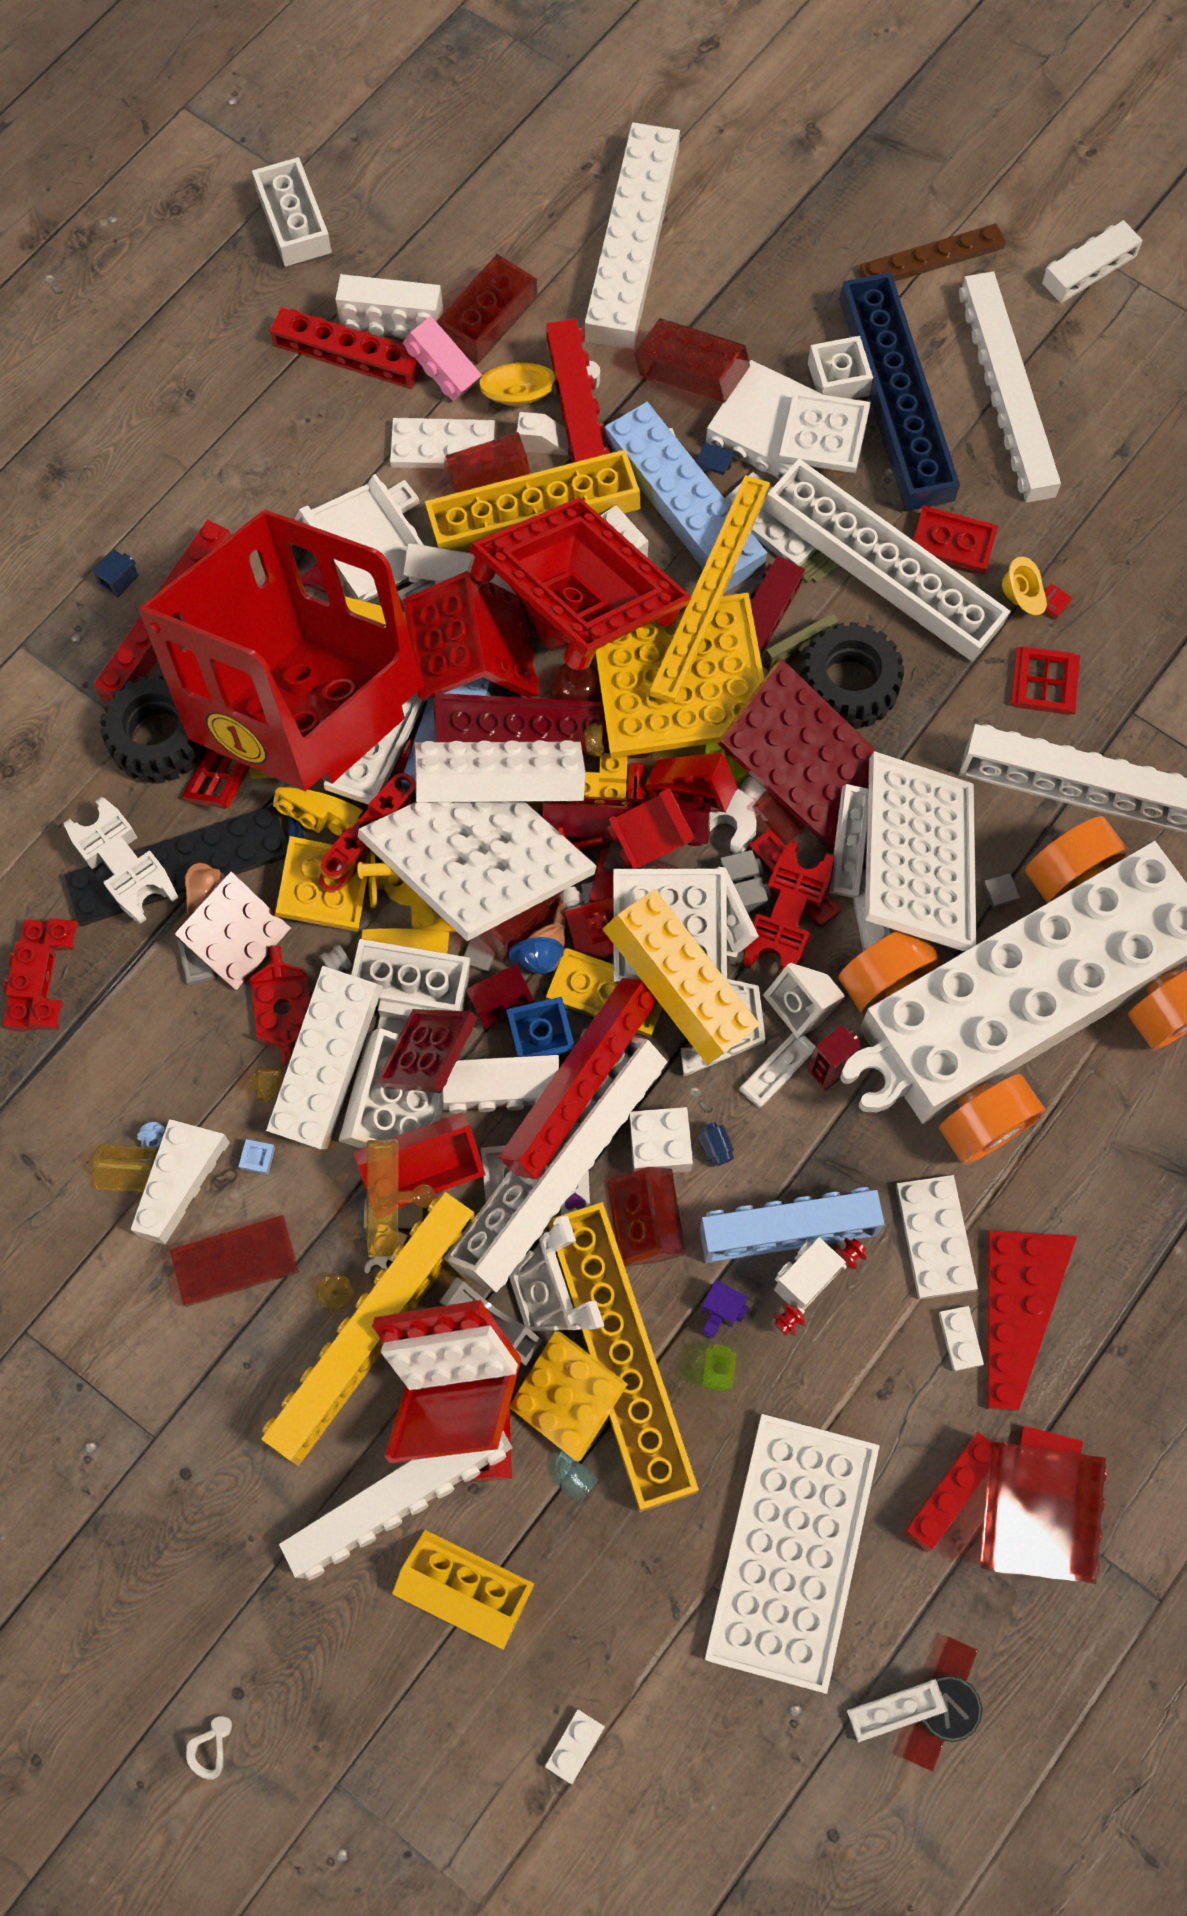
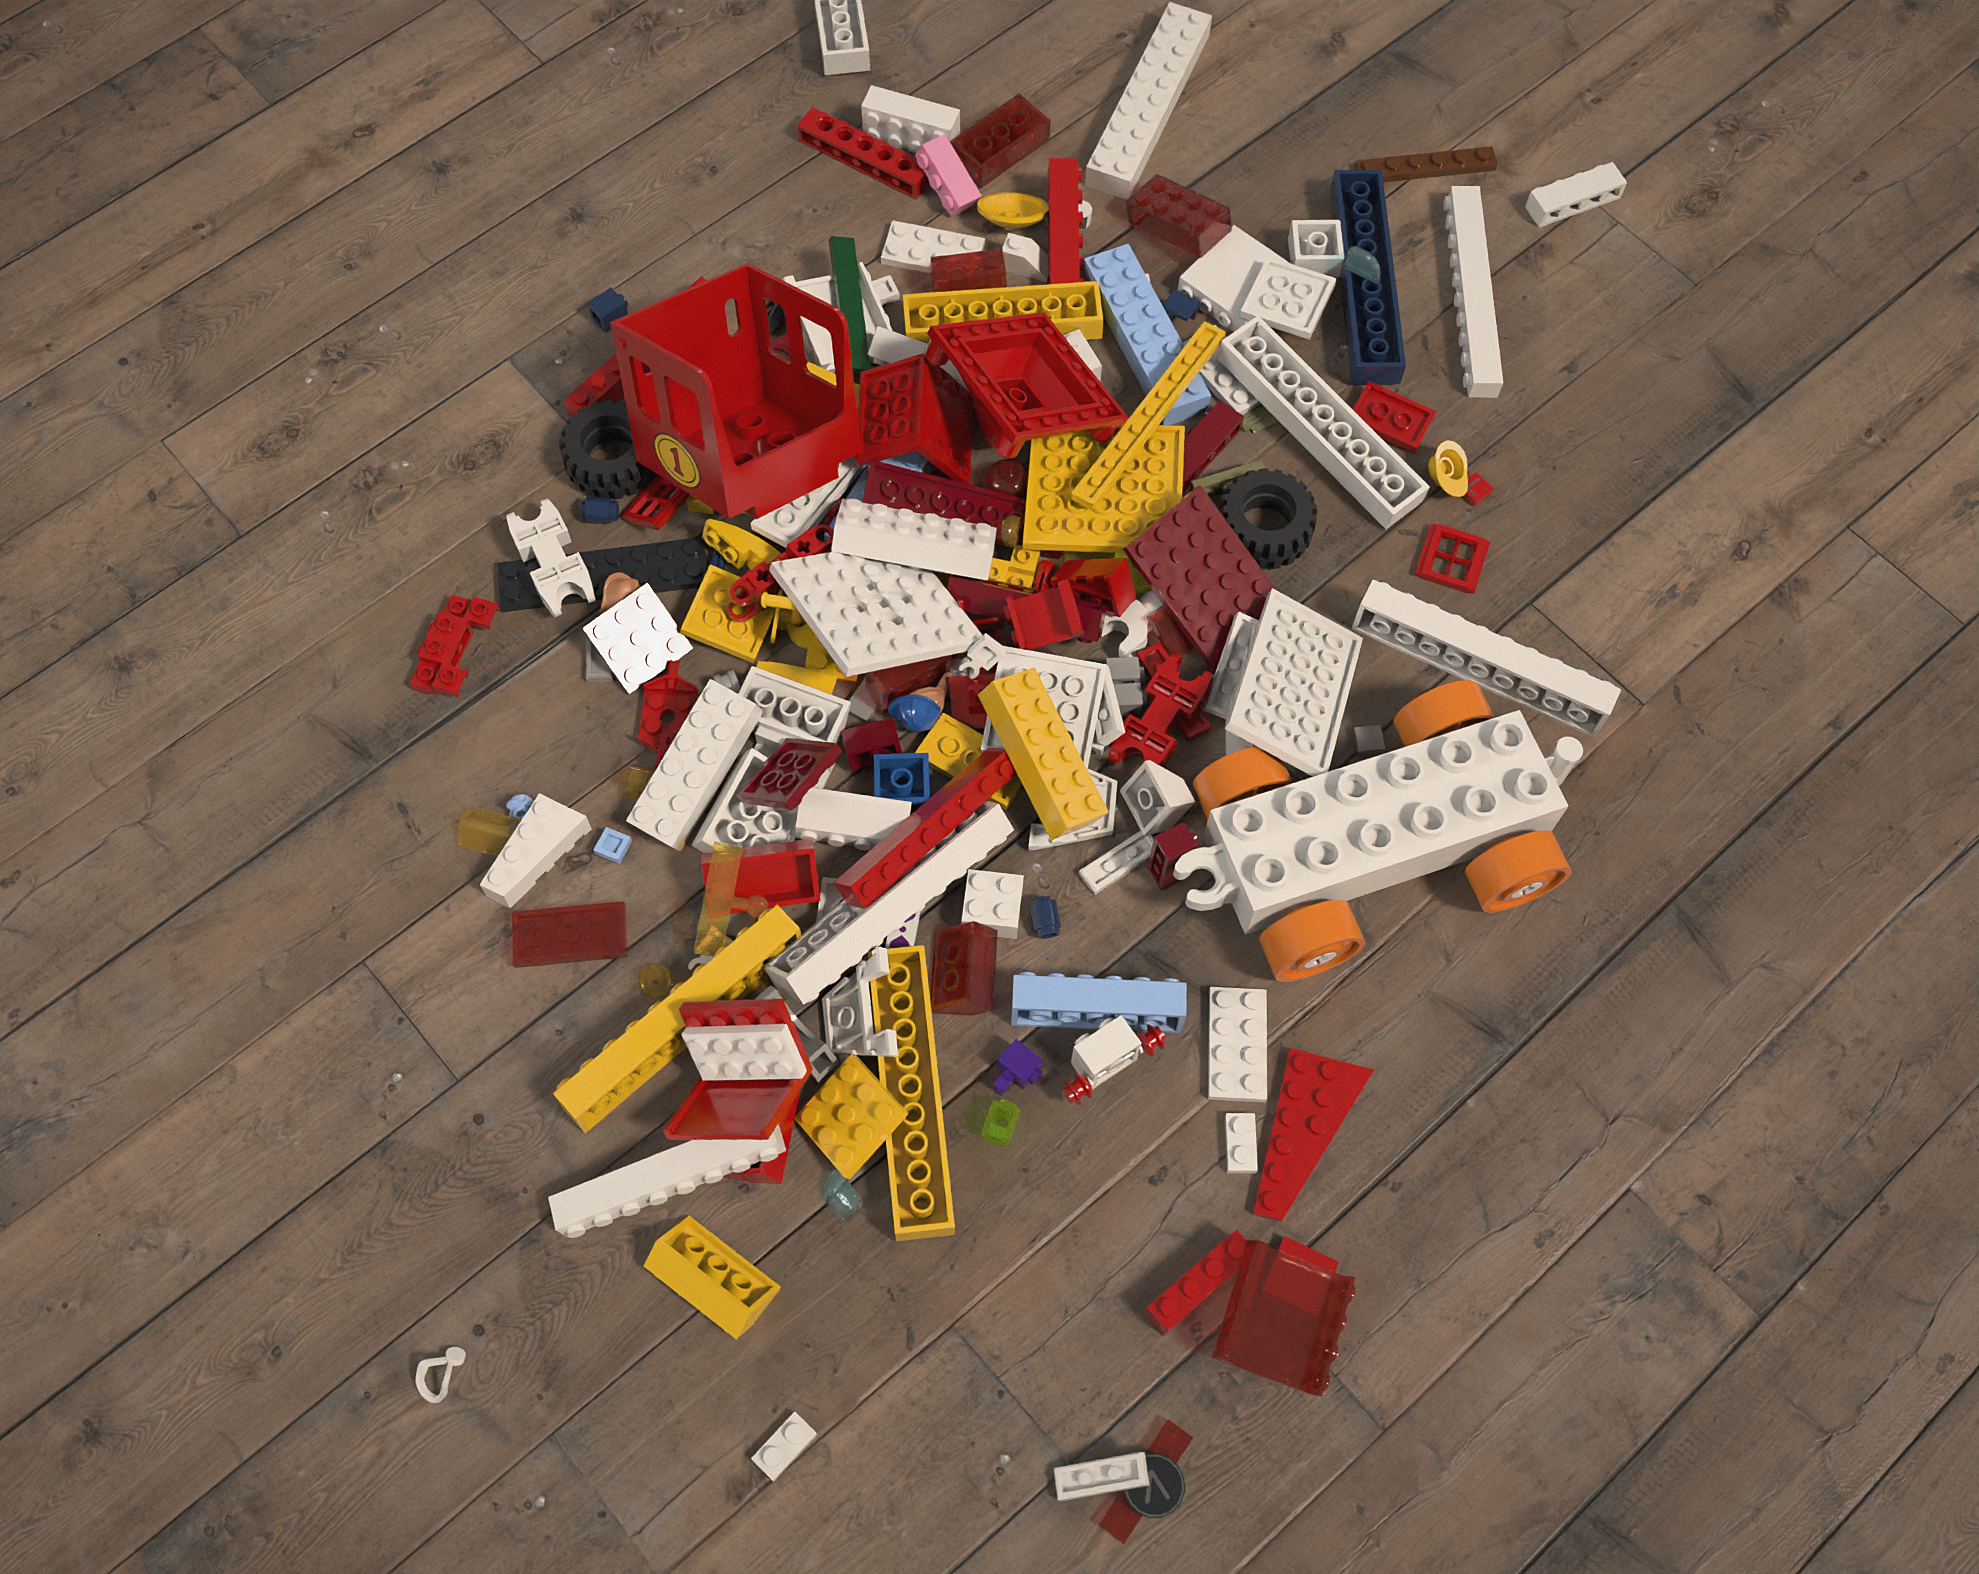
camera: 10 degrees right, 5 degrees down
(158, 796) = (599, 510): none -> dark blue brick
(368, 510) = (849, 298): none -> dark green tile
(597, 881) = (983, 654): none -> white plate
(792, 1554) = (1033, 1310): white plate -> none
(894, 381) = (1363, 264): none -> clear light blue brick

